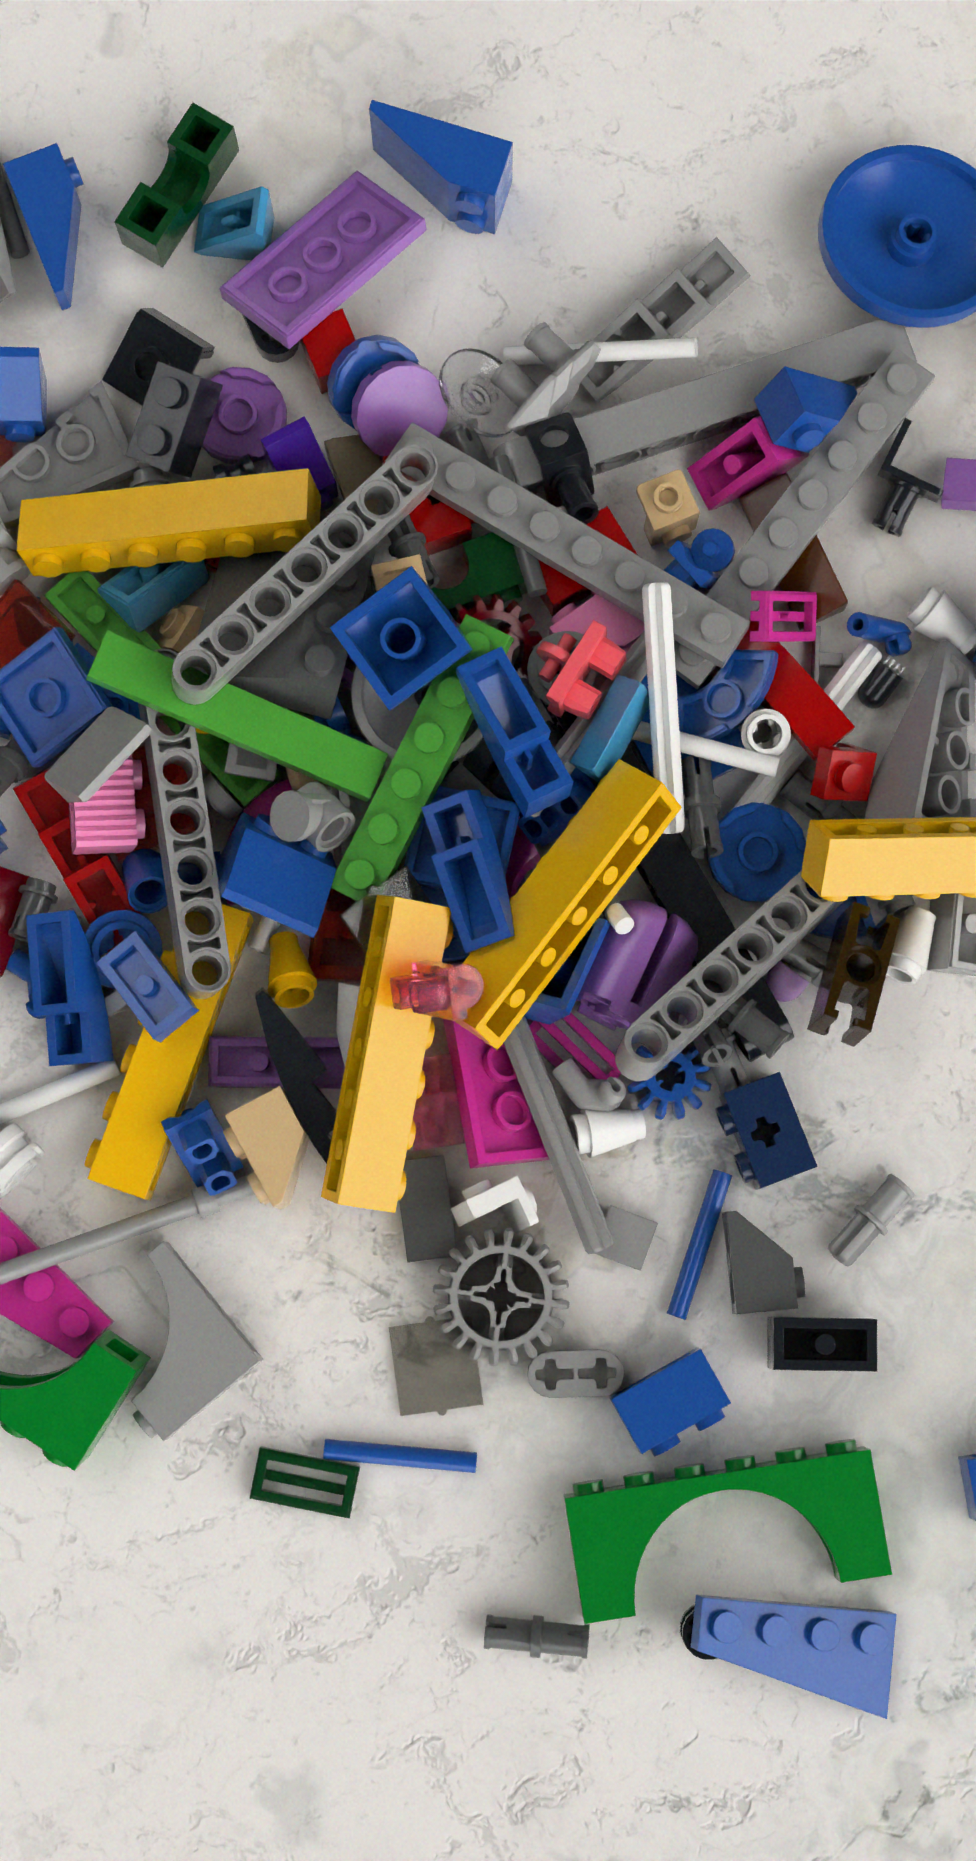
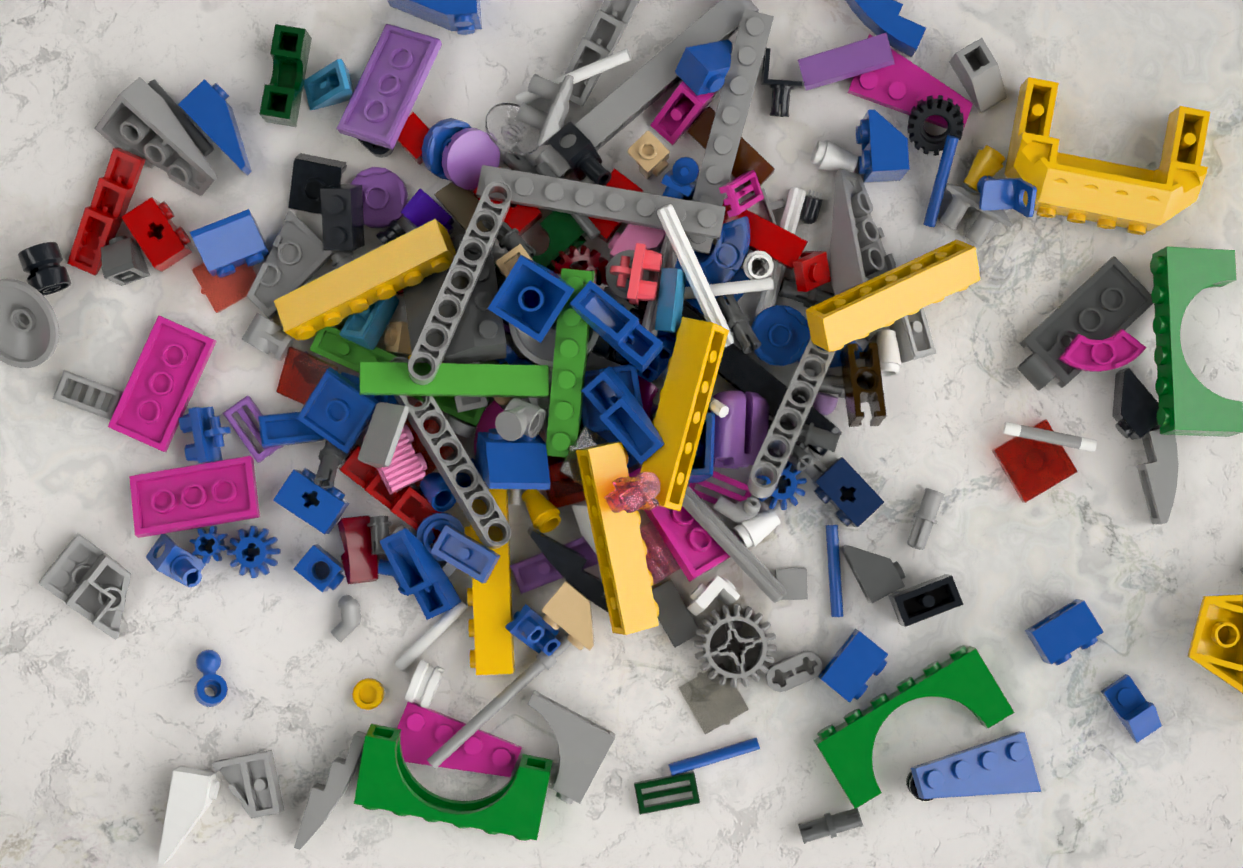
camera: 25 degrees left, 5 degrees up
(881, 630) = (798, 176): blue arm -> none

